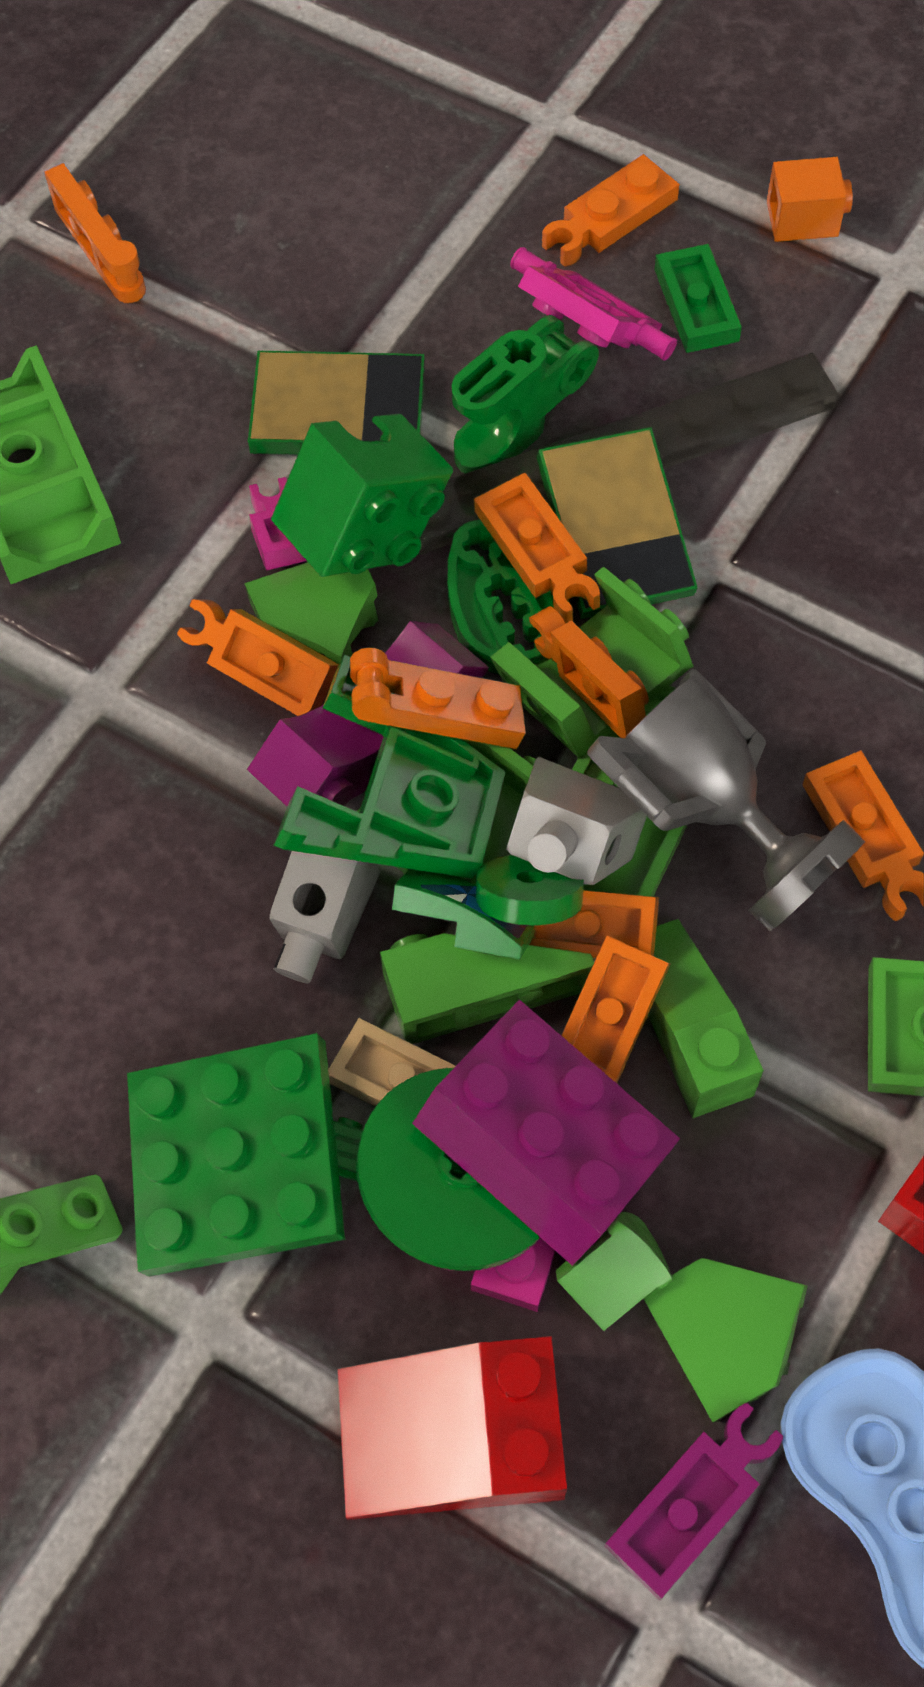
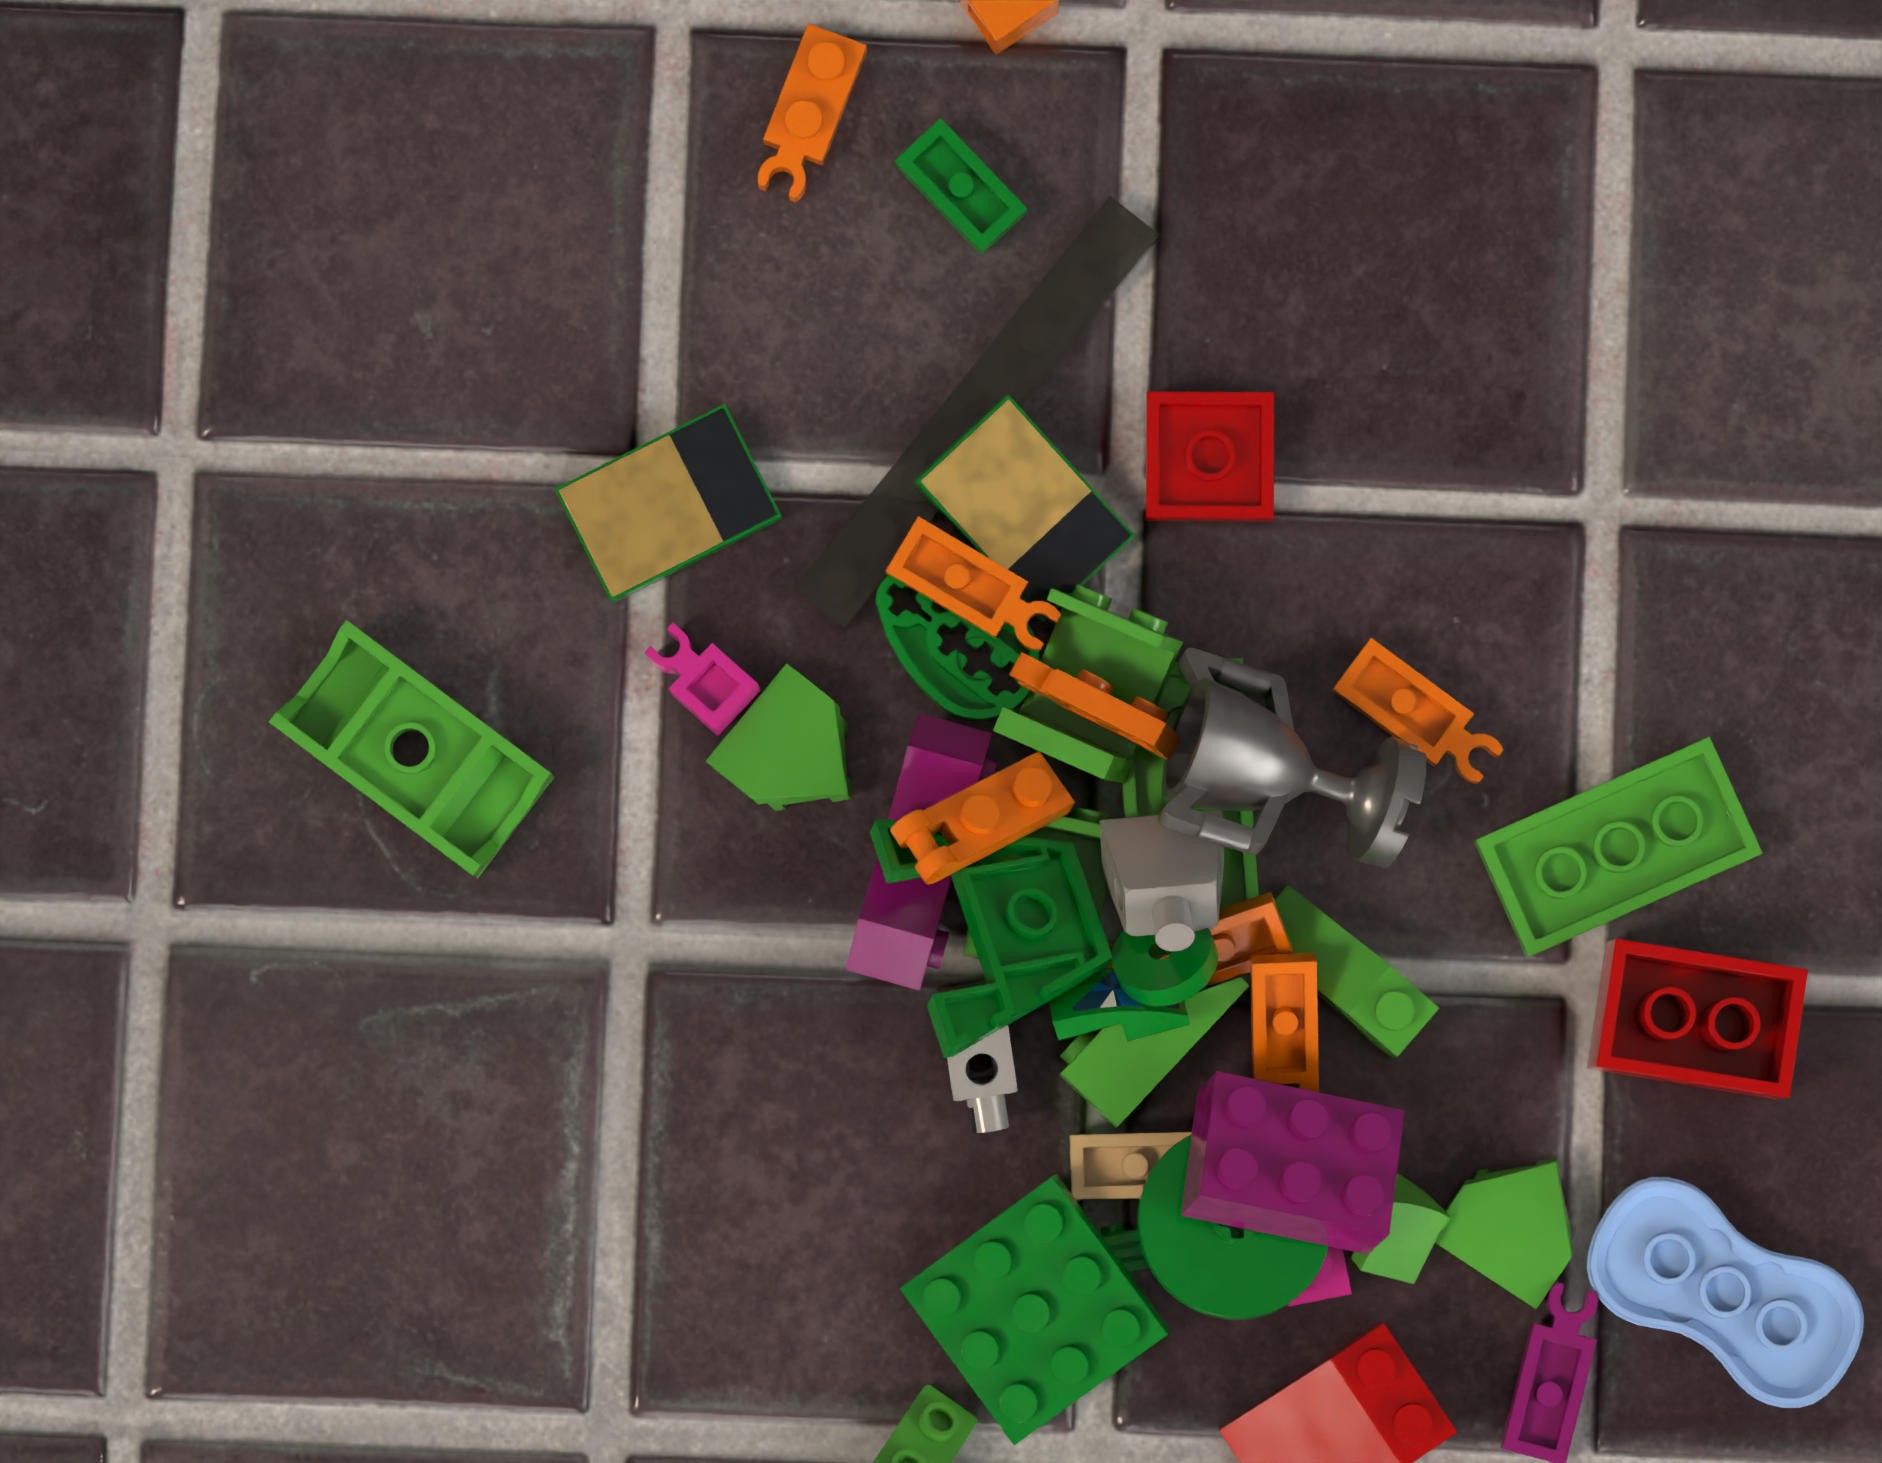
camera: 30 degrees left, 20 degrees up
(96, 235) = (302, 436): orange plate -> none
(262, 657) = (771, 833): orange plate -> none
(361, 501) = (788, 635): green piece -> none
(513, 389) = (847, 454): green piece -> none
(600, 313) = (868, 270): dark pink plate -> none
(793, 560) = (1209, 456): none -> red plate

